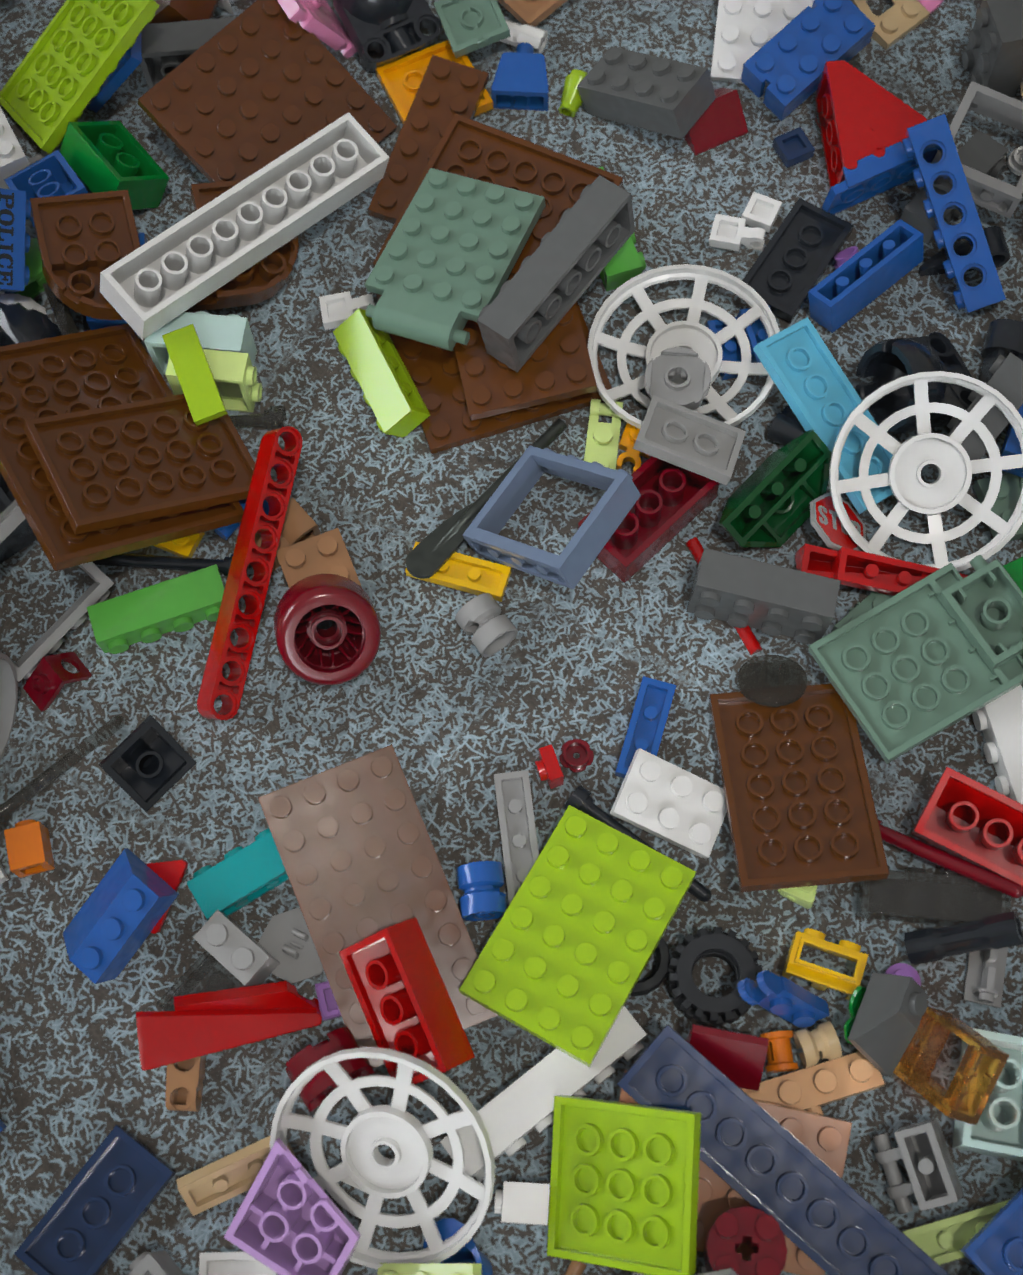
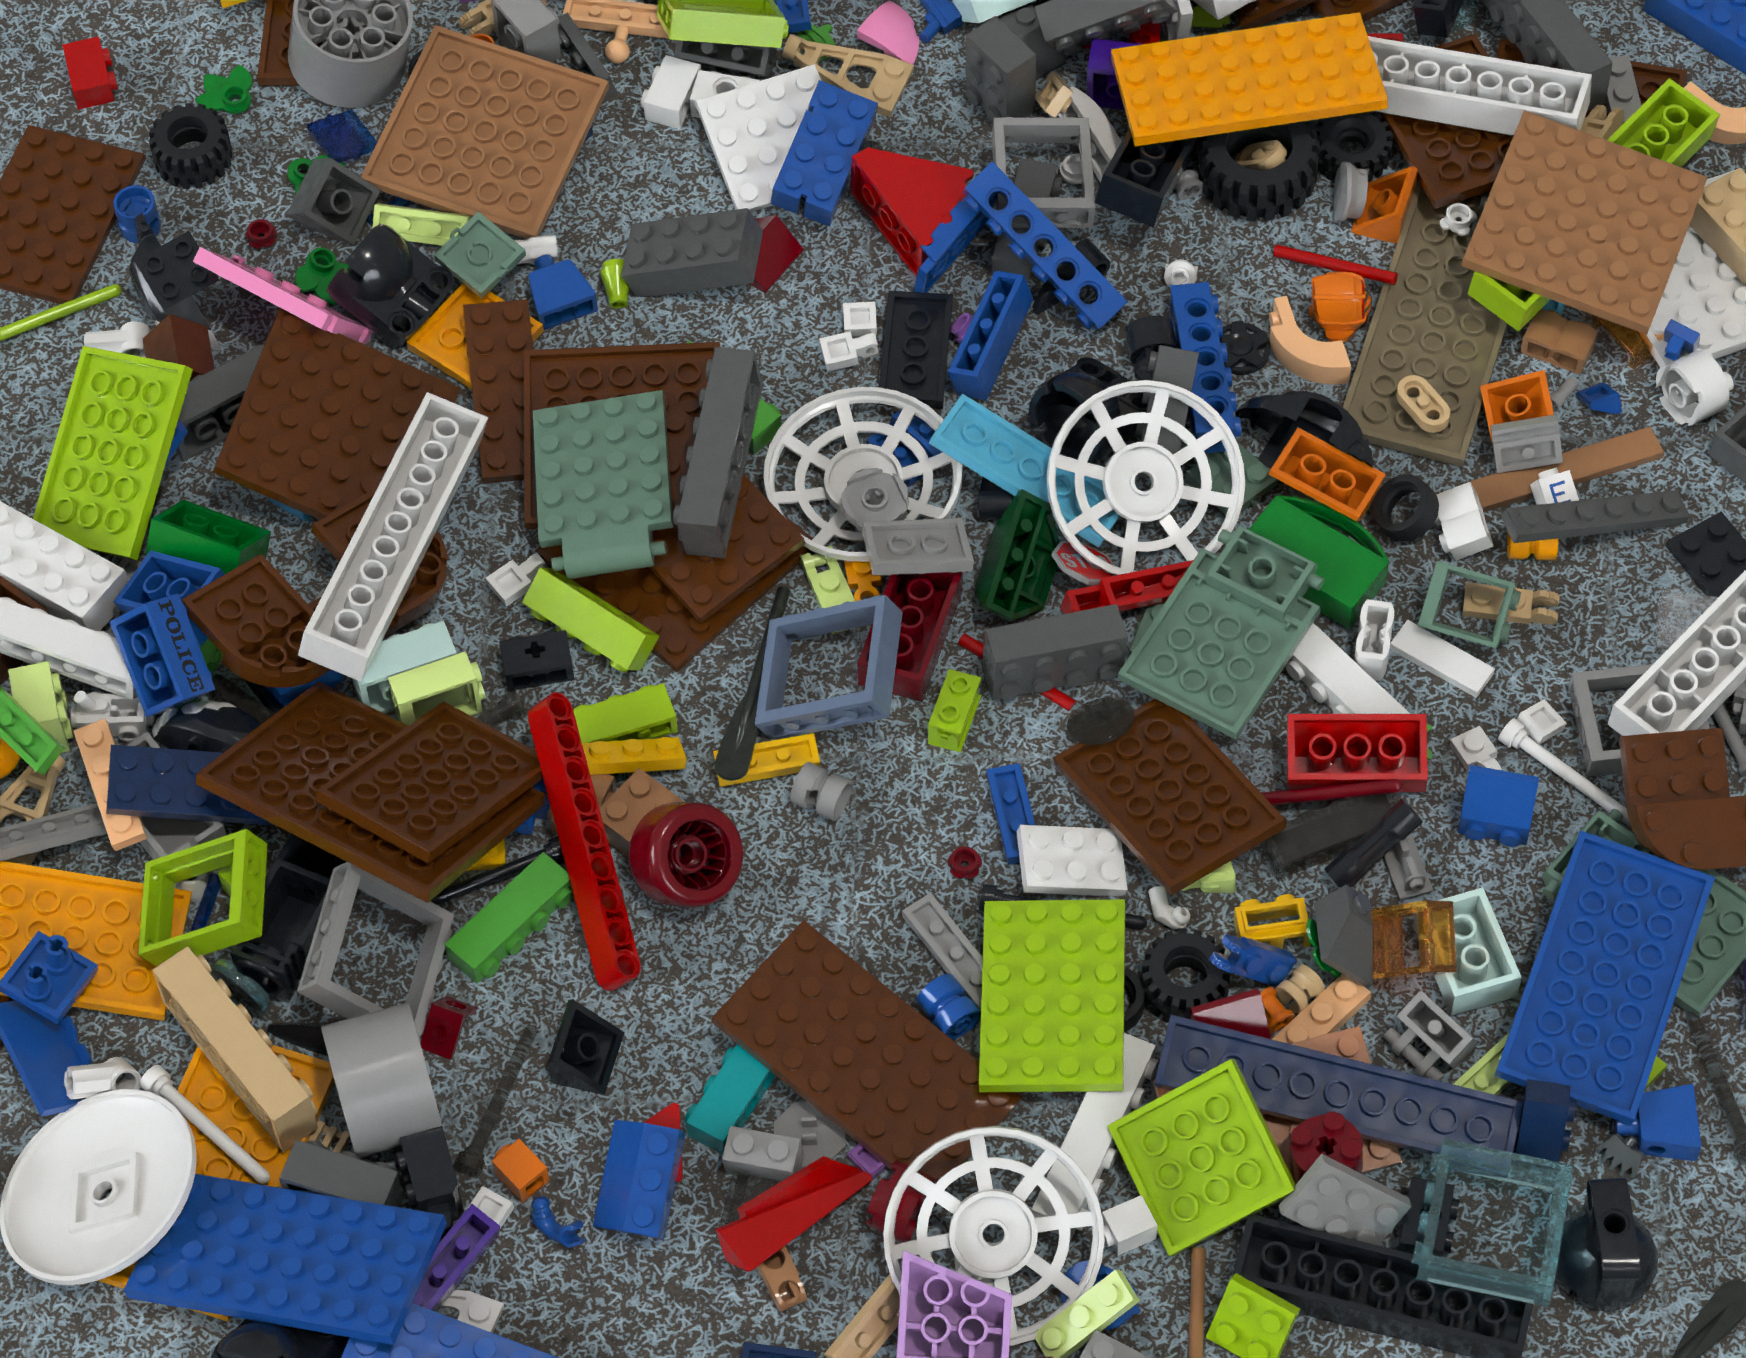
camera: 30 degrees left, 10 degrees down
(31, 927) = (547, 1224): none -> blue piece
(194, 374) = (429, 691): lime tile -> none
(318, 388) = (525, 672): none -> black brick
(343, 512) = (631, 754): none -> yellow plate
(350, 476) = (628, 716): none -> lime brick
(406, 998) = (927, 1103): red slope -> none
(548, 767) = (948, 882): red plate -> none
(644, 606) = (954, 711): none -> lime hinge
(733, 900) = (1164, 913): none -> white arm
(793, 147) = (856, 246): dark blue plate -> none

